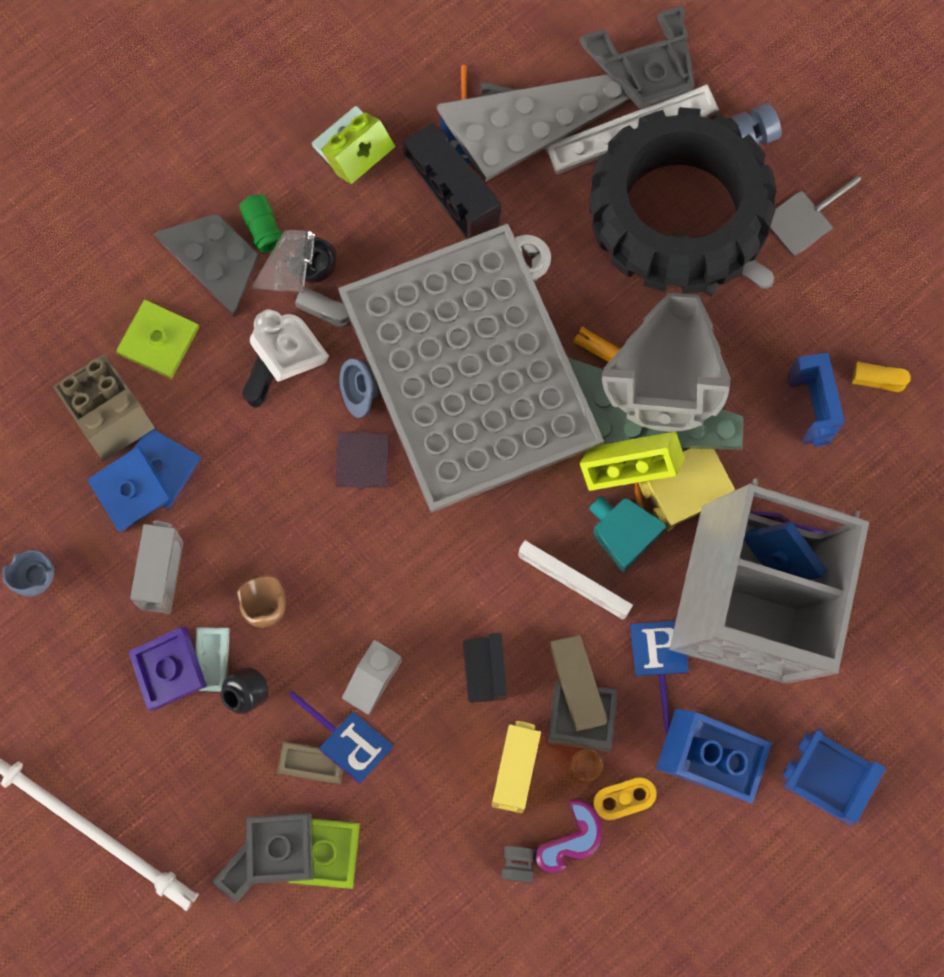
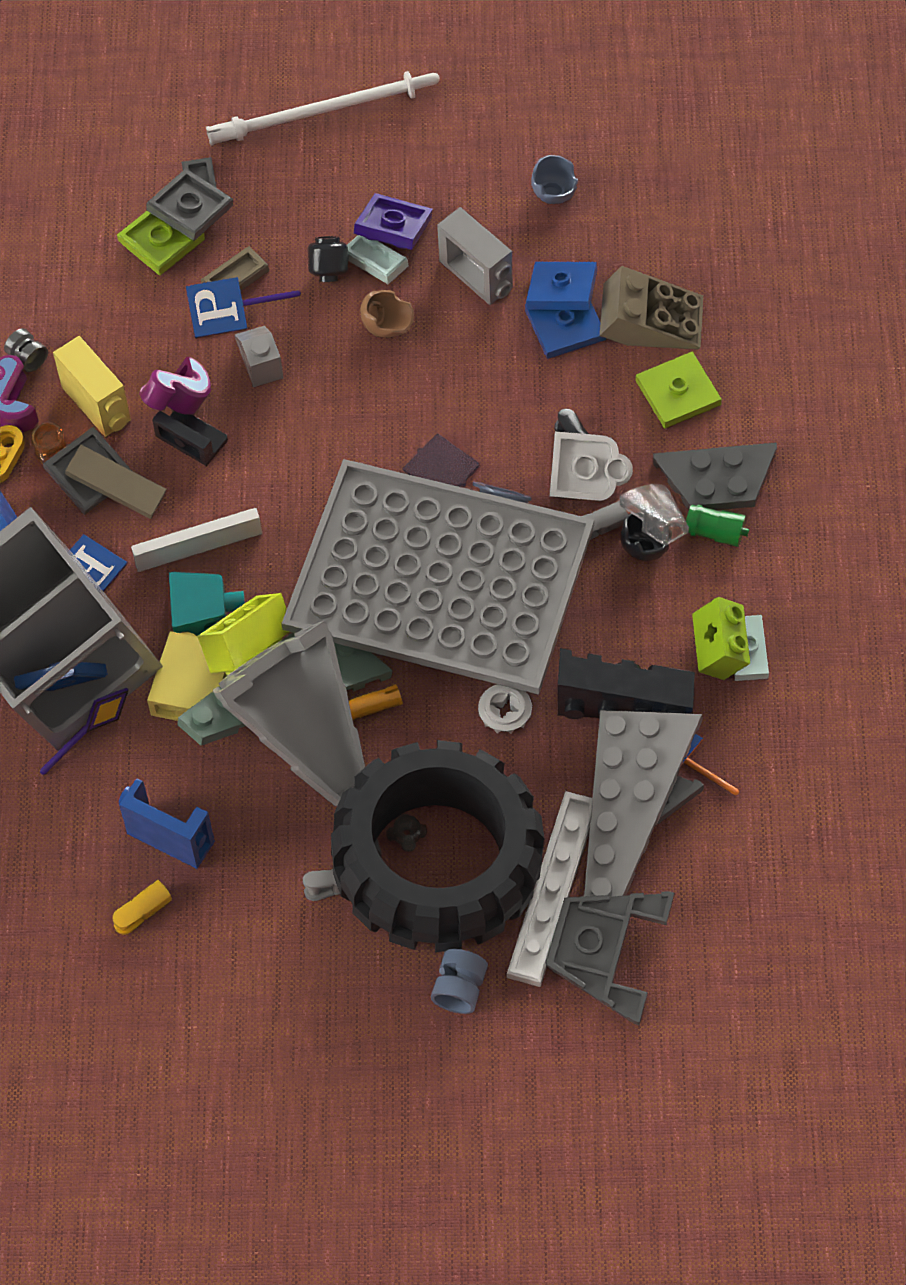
camera: 135 degrees right, 15 degrees down
(457, 690) = (179, 391): none -> magenta animal
(800, 222) = (339, 964): light grey piece -> none

